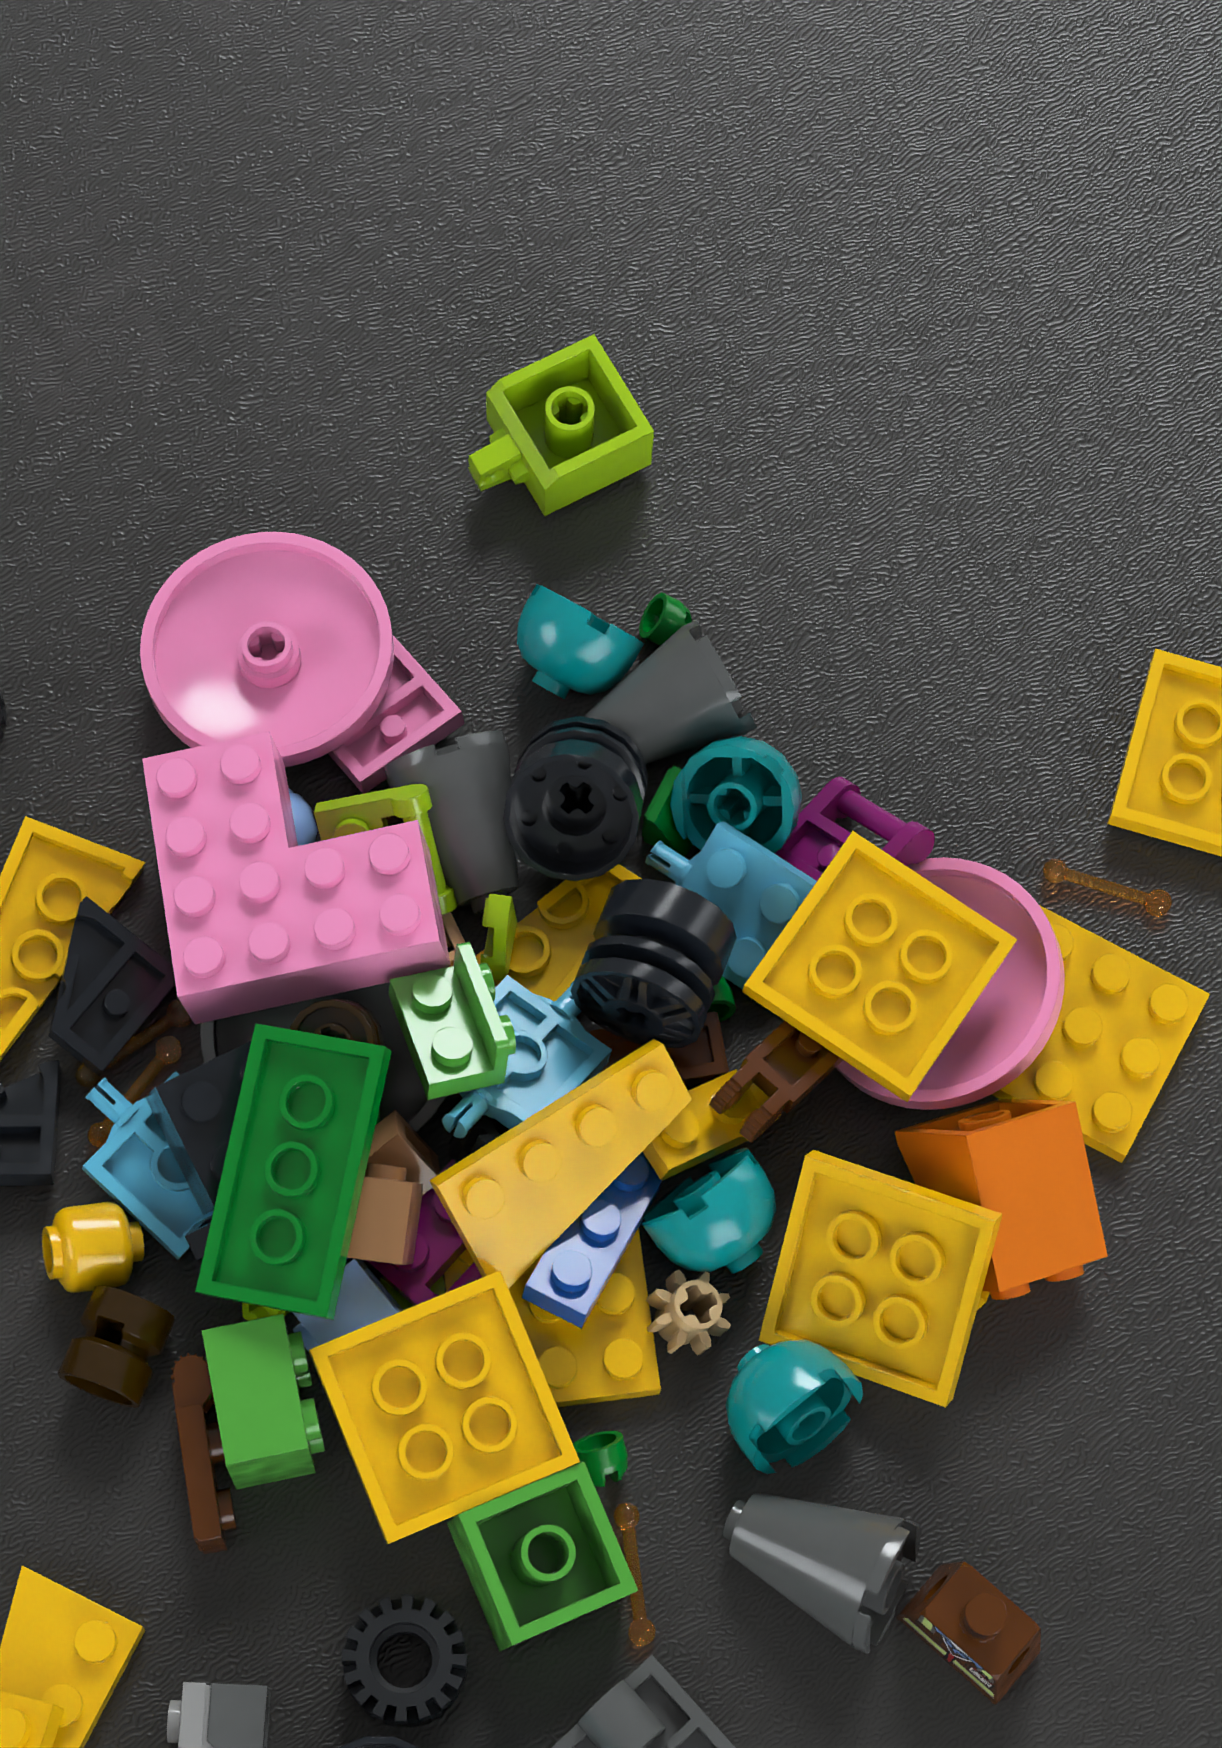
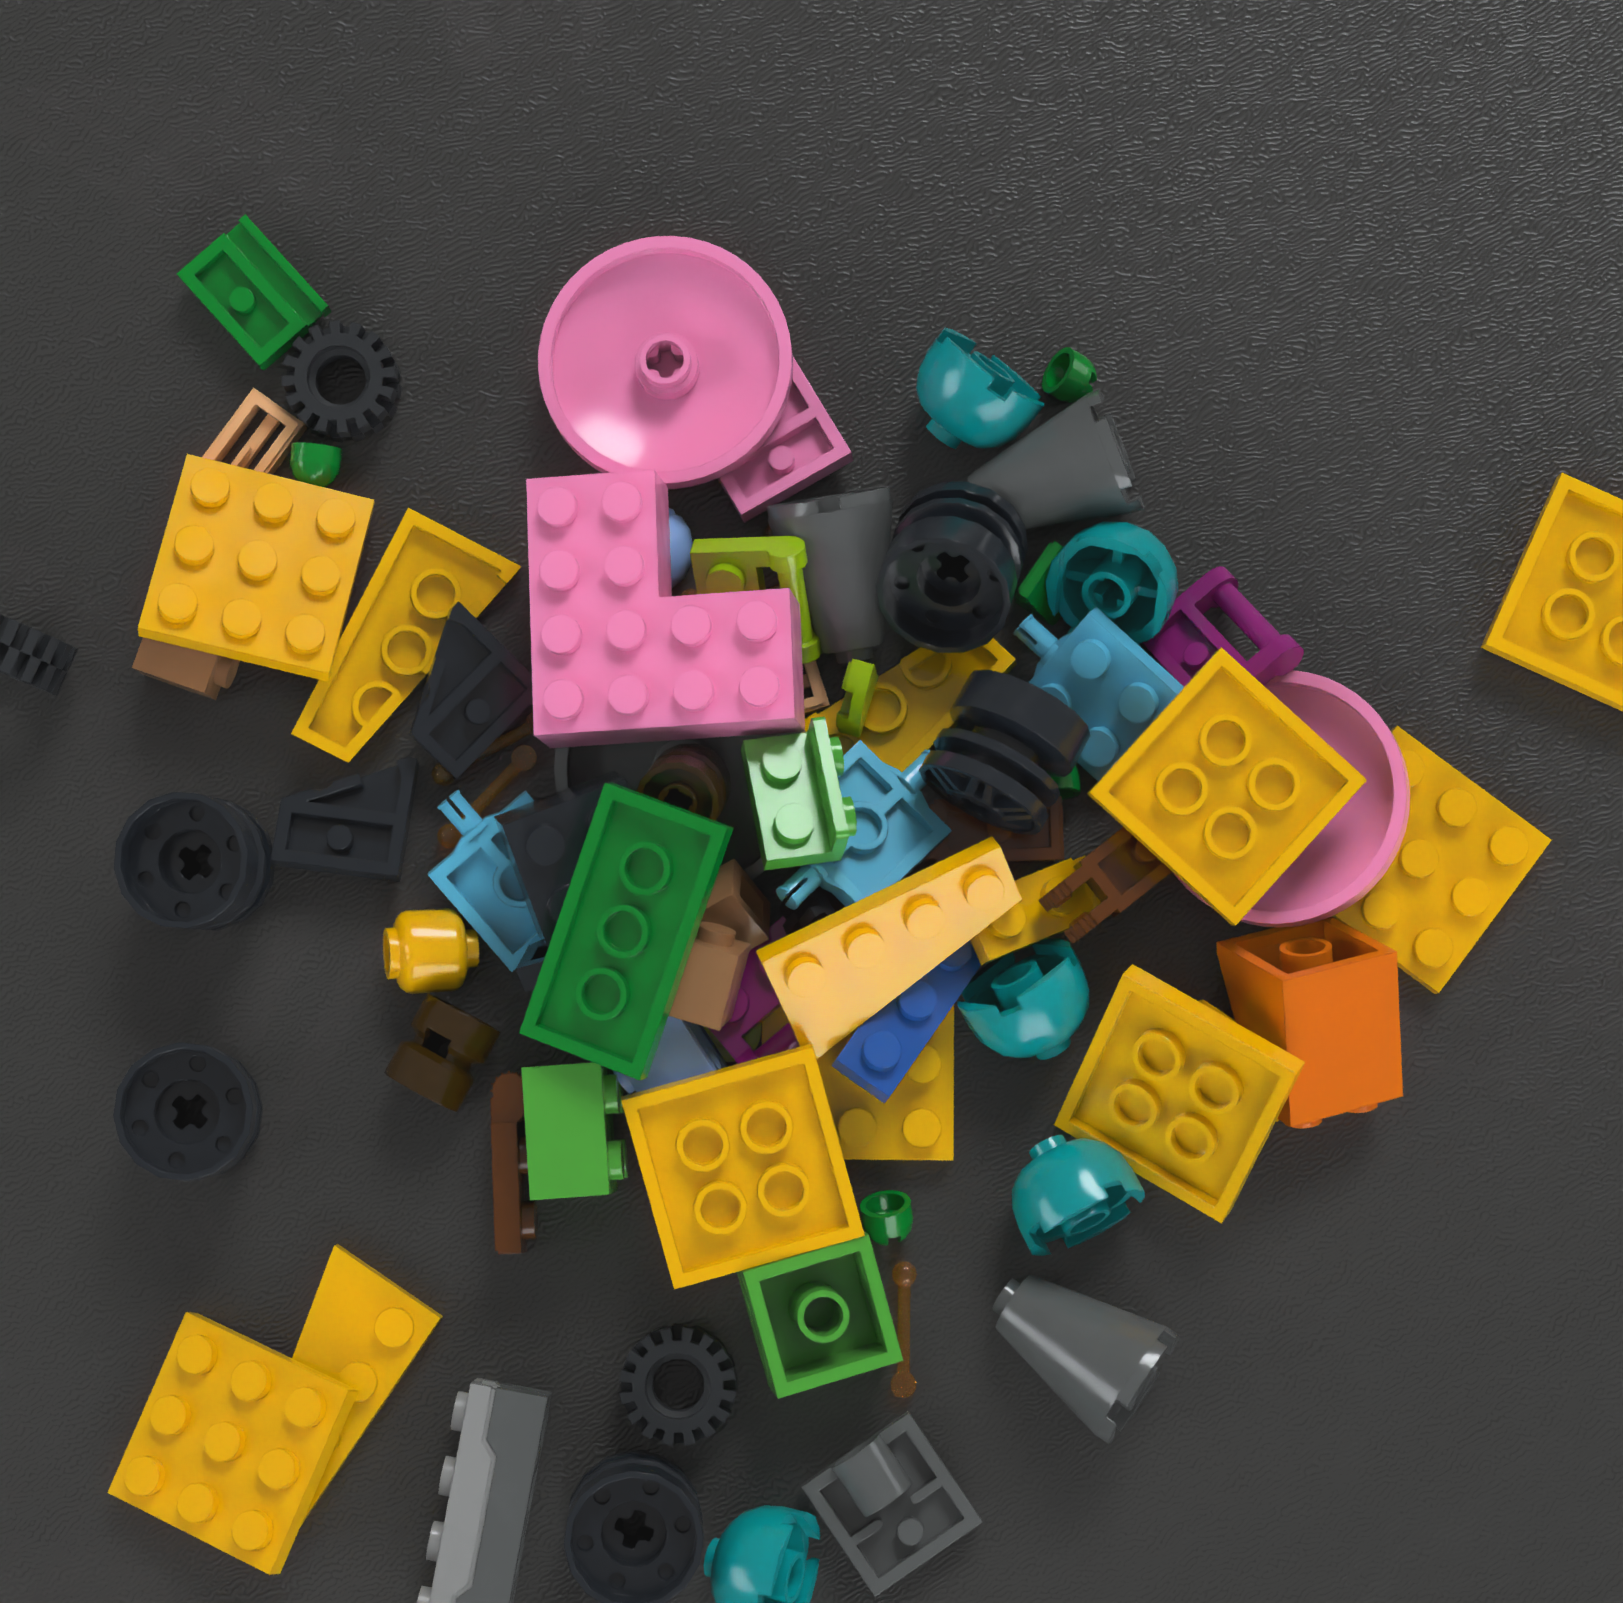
camera: 15 degrees right, 15 degrees up
(563, 428) = (981, 191): lime hinge -> none
(691, 1329) = (1003, 1104): tan gear -> none
(973, 1628) = (1210, 1428): reddish brown torso -> none
(1156, 902) = (1515, 734): clear orange hinge -> none

